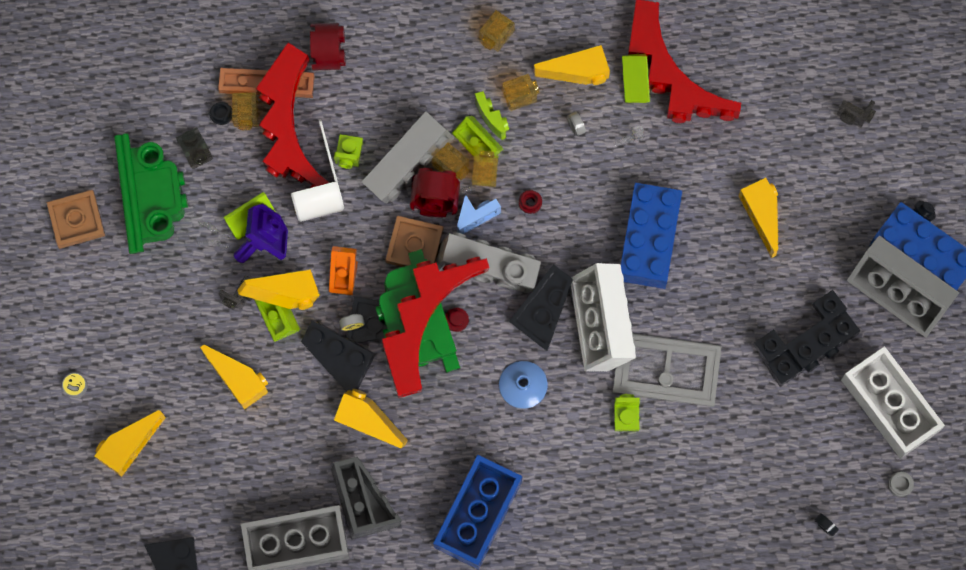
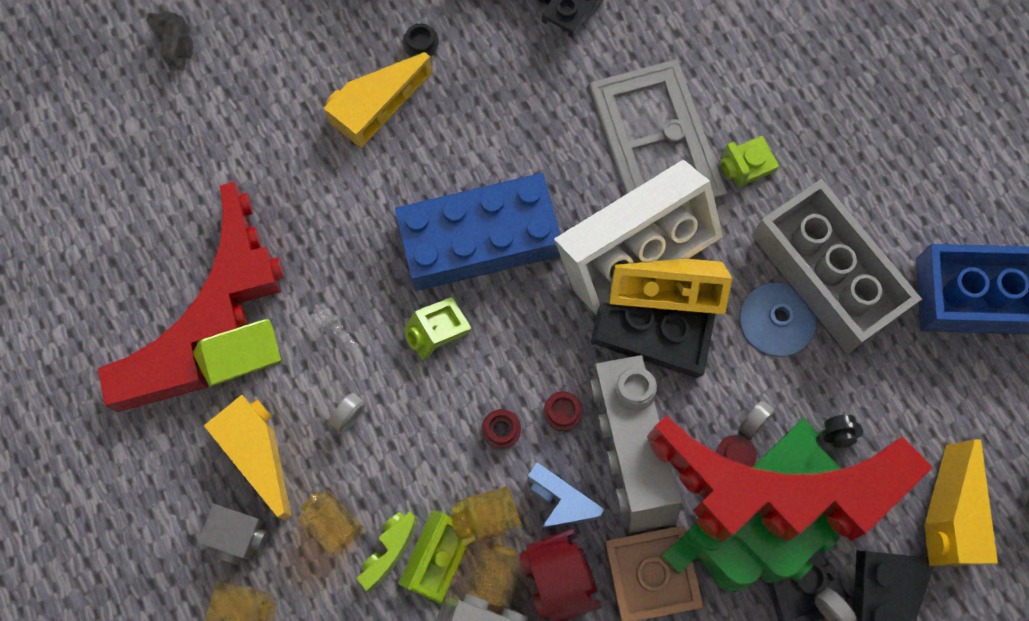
camera: 115 degrees left, 0 degrees up
(442, 382) = (842, 430): none -> black plate
(470, 338) = (756, 419): none -> light grey tile
(525, 239) = (563, 411): none -> dark red plate
(536, 422) = (835, 266): none -> light grey brick
(537, 41) = (233, 534): none -> flat silver brick
(566, 325) = (672, 285): none -> yellow slope
(604, 190) = (435, 327): none -> lime bracket
(793, 257) = (420, 39): none -> black plate

